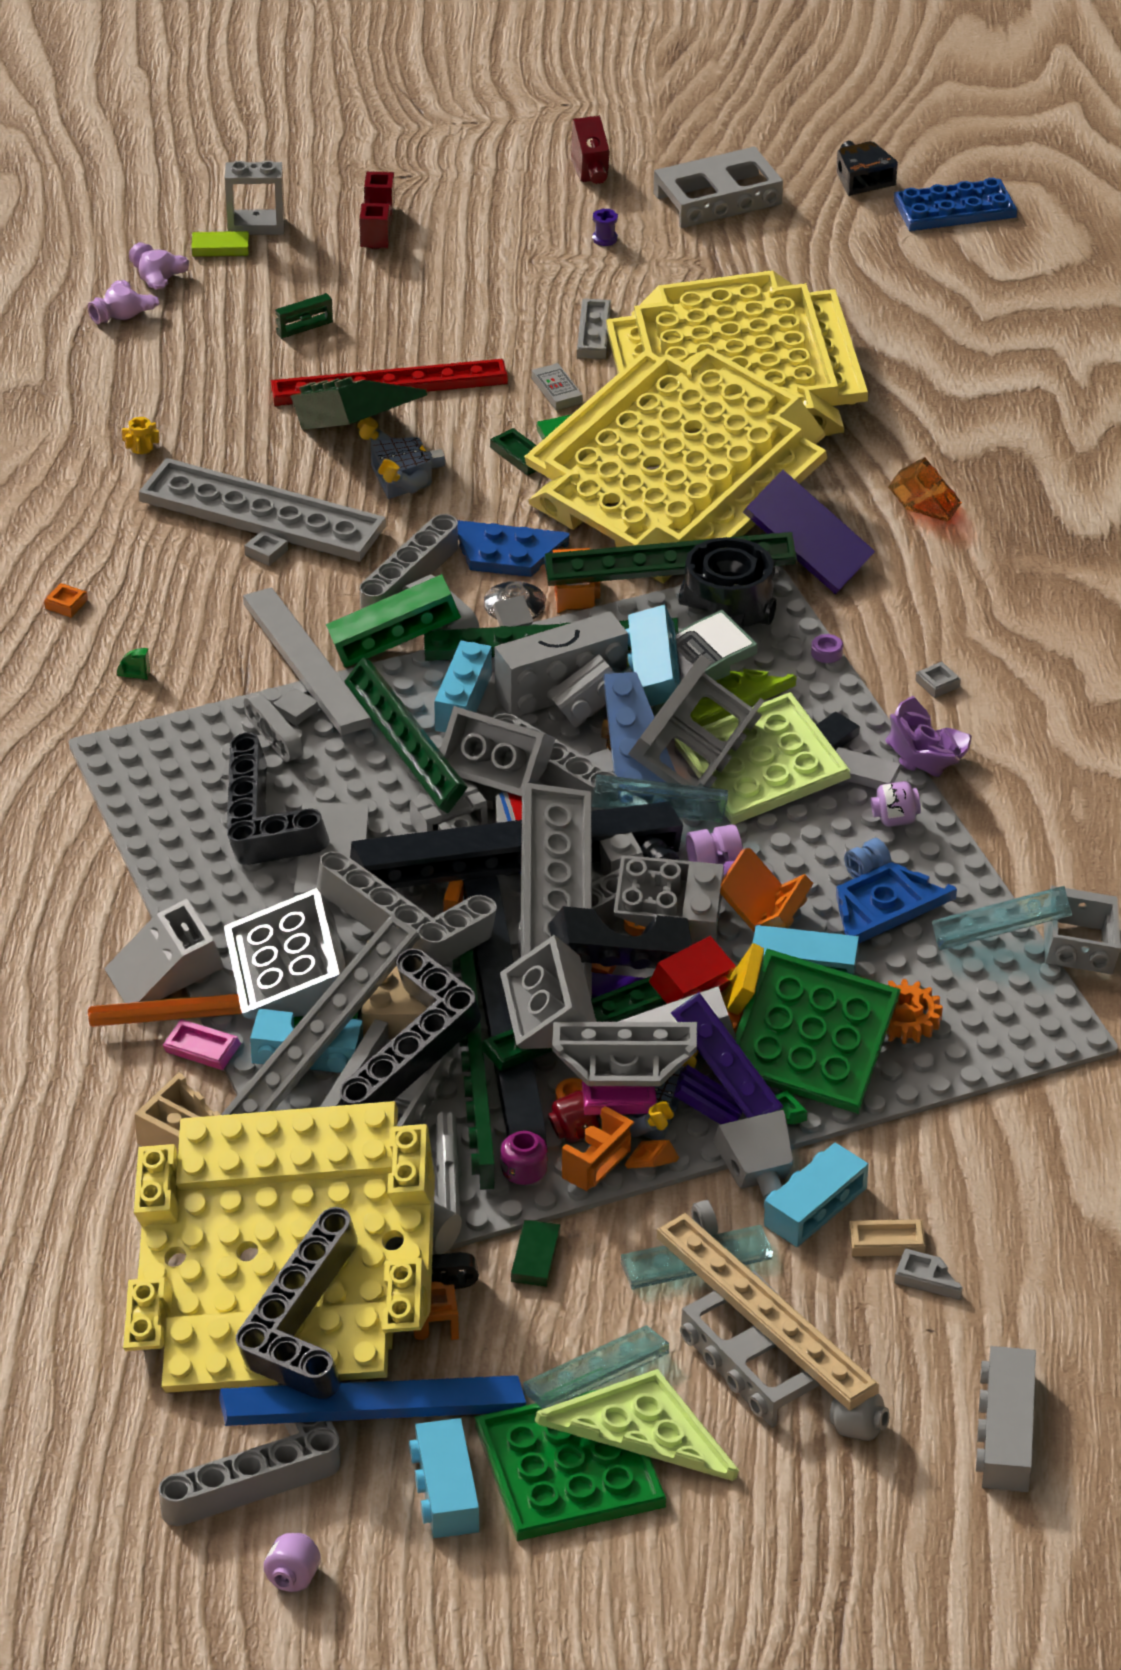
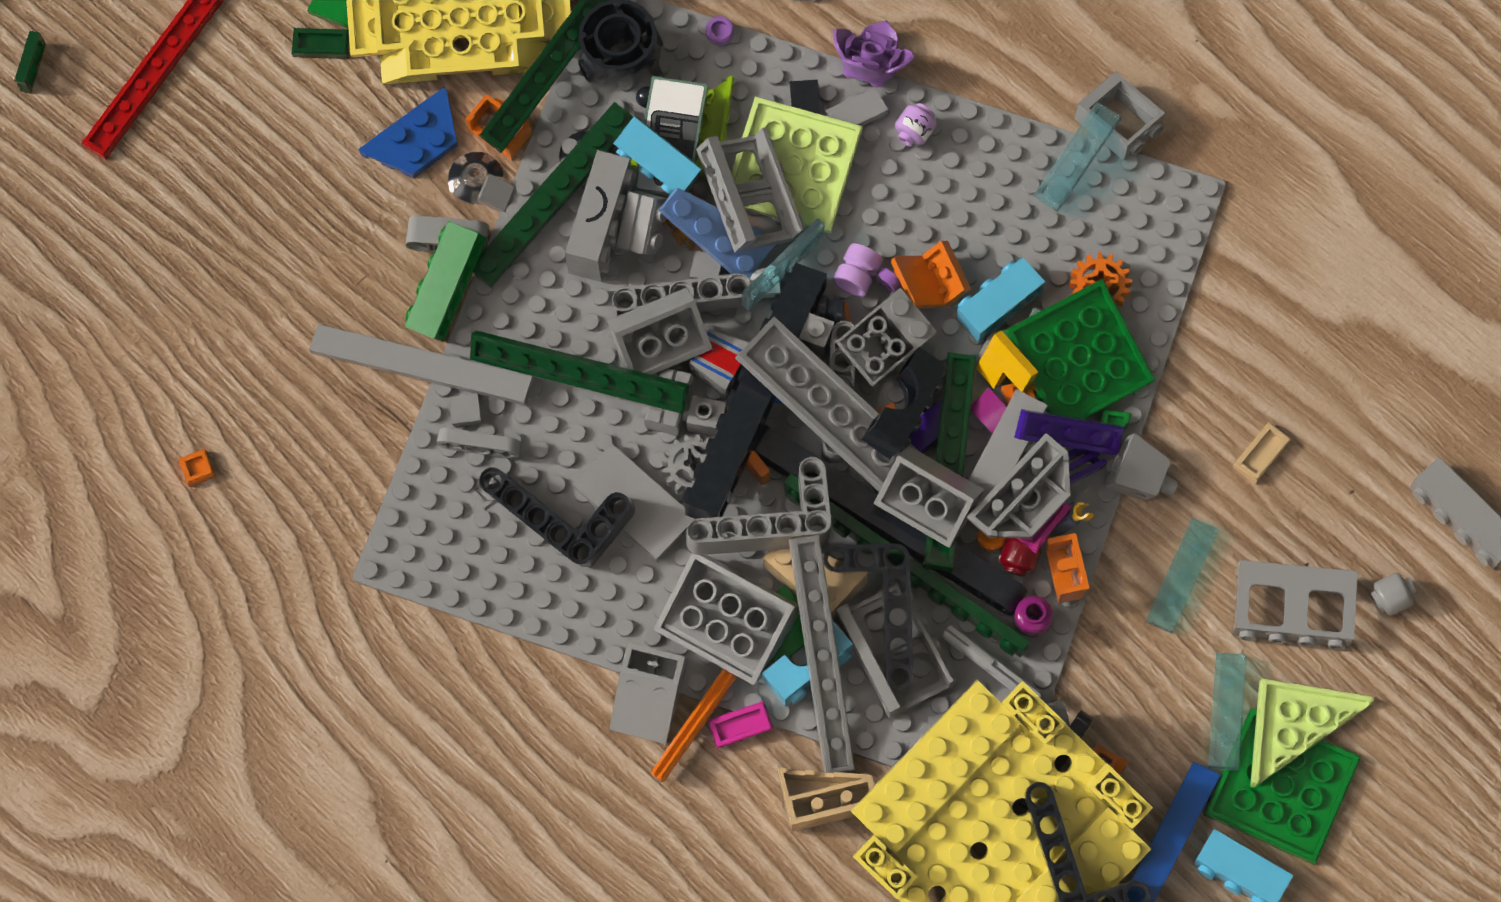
camera: 45 degrees left, 30 degrees up
(135, 664) = (316, 478): green tile -> none
(140, 435) = (57, 277): yellow gear -> none
(262, 507) = (224, 264): light grey plate -> none
(266, 547) = (266, 292): light grey tile -> none
(348, 401) = (189, 119): dark green slope -> none
(399, 463) = (265, 133): sand blue torso -> none
(413, 560) = (381, 207): light grey beam -> none
(463, 682) = (555, 292): medium azure brick -> none
(535, 1253) = (1098, 667): dark green tile -> none
(652, 1154) = (1088, 534): orange slope -> none
(692, 971) = (973, 386): red brick -> none
(704, 1215) = (1162, 547): light grey tile -> none
(768, 1312) = (1283, 583): tan tile -> none
(815, 1194) = (1197, 466): medium azure brick -> none
(865, 859) = (948, 184): medium blue wheel -> none
(887, 899) = (991, 207): blue wing -> none
(927, 1274) = (1309, 456): light grey tile -> none

